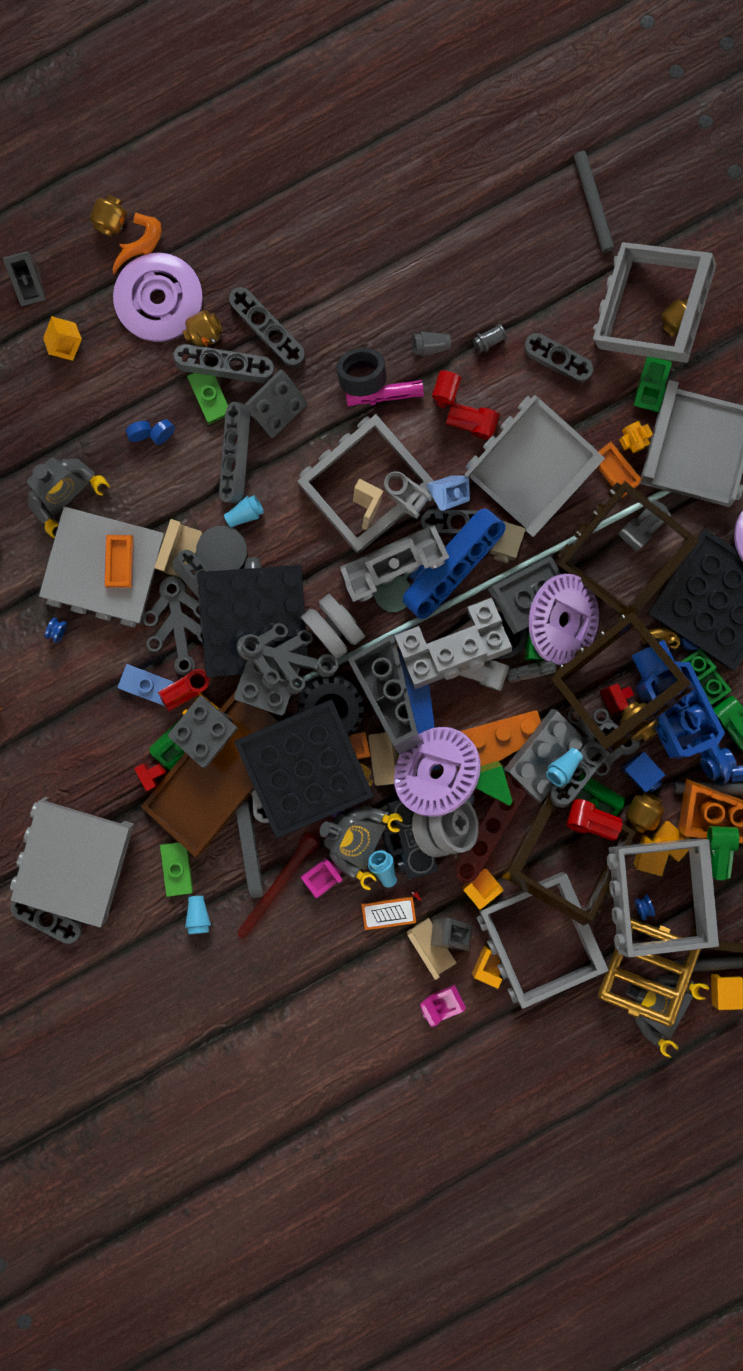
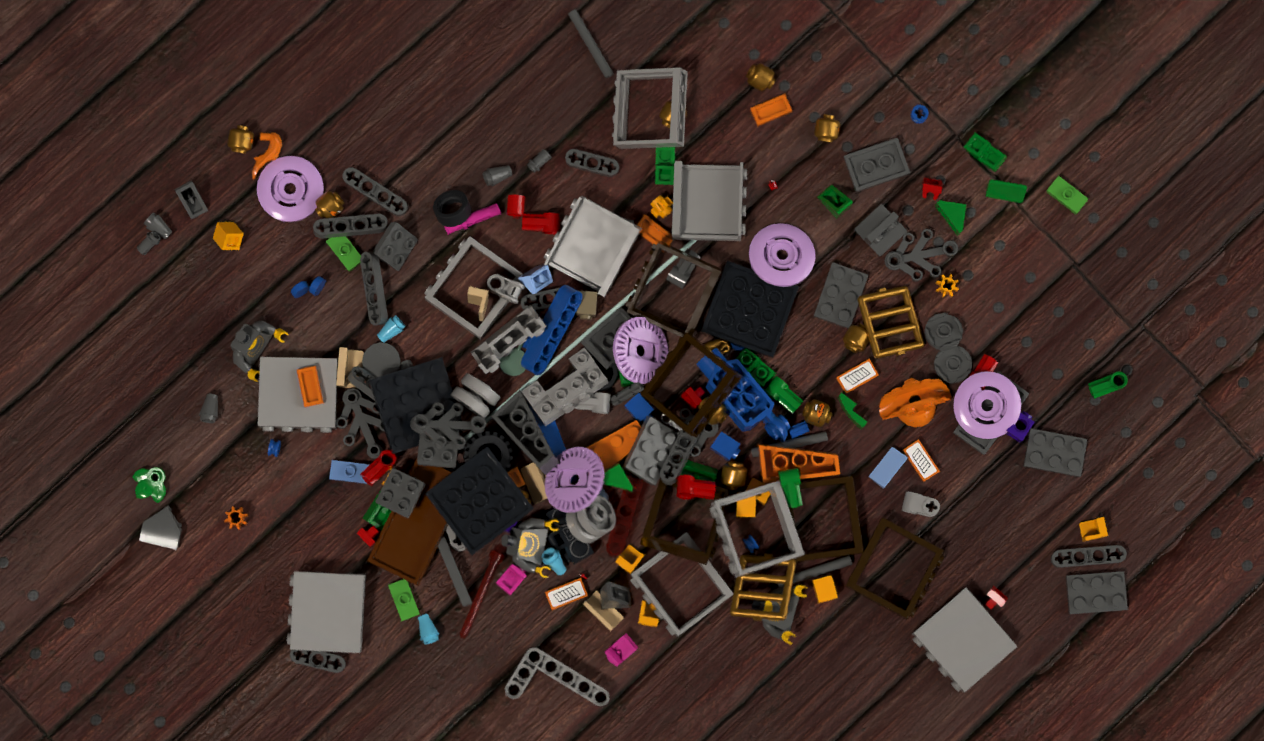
camera: 15 degrees left, 5 degrees down
(349, 1017) = (556, 675): none -> light grey beam
(543, 695) = (639, 408): none -> blue brick
(563, 768) = (663, 457): medium azure cone -> none

